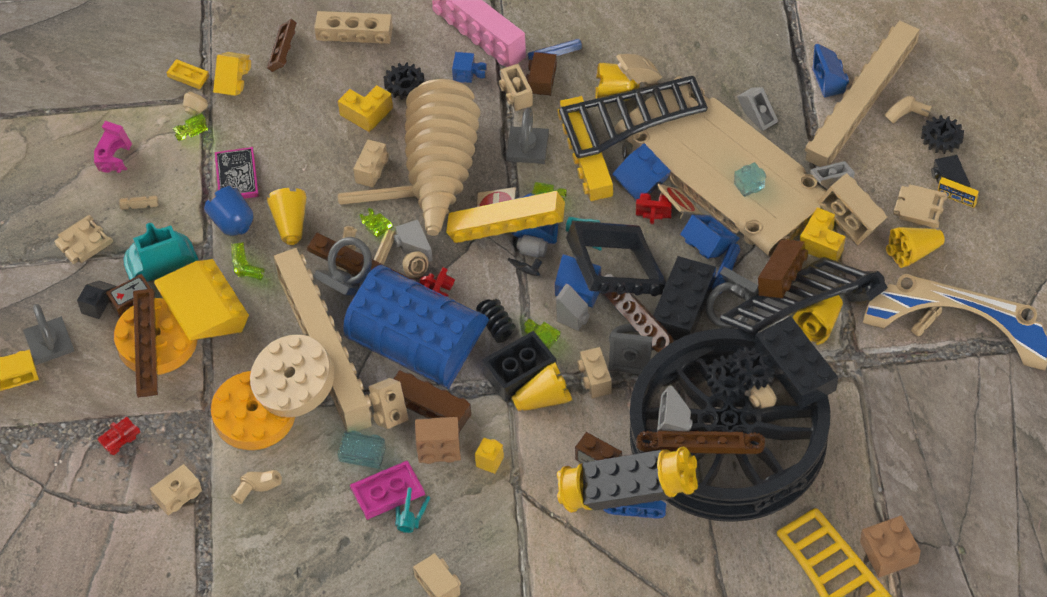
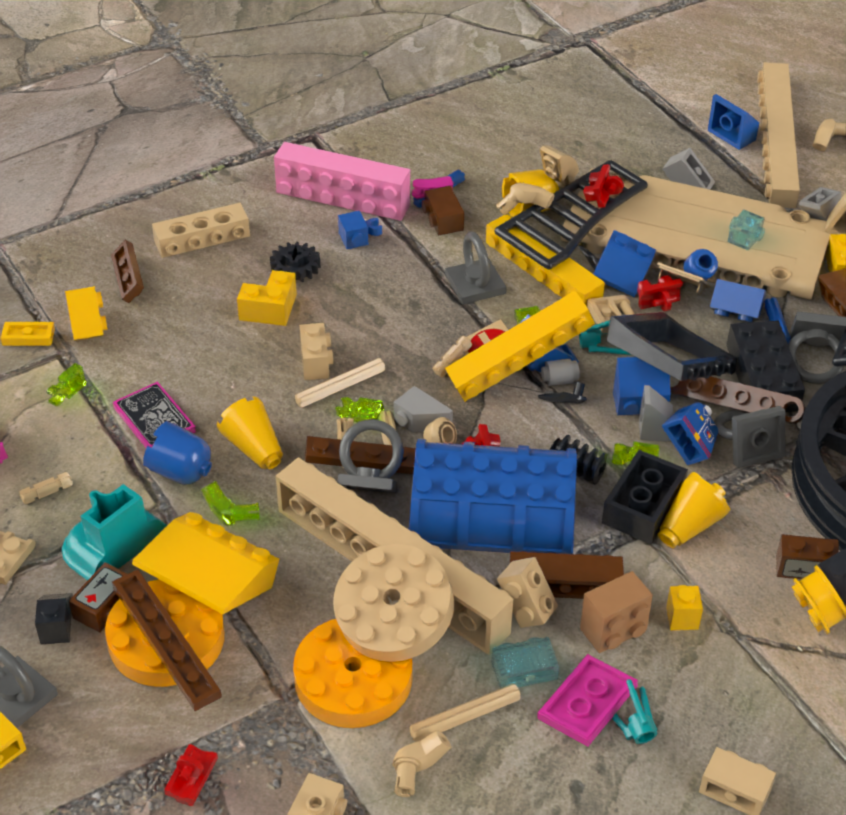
camera: 30 degrees left, 10 degrees down
(194, 103) = (56, 358): tan cone -> none
(306, 465) = (465, 712): none -> tan axle
(439, 145) = (392, 301): tan cone -> none
(467, 202) = (452, 355): none -> tan axle
(516, 87) = (428, 228): tan brick -> none
(535, 46) = (421, 185): none -> dark pink bar
(588, 329) = (692, 432): none -> blue torso
(595, 372) = (732, 472): tan brick -> none
(598, 87) = (525, 194): none -> tan arm
(601, 207) = (605, 307): none -> tan plate
(662, 101) = (602, 186): none -> red hips
(687, 193) = (701, 263): none -> blue head

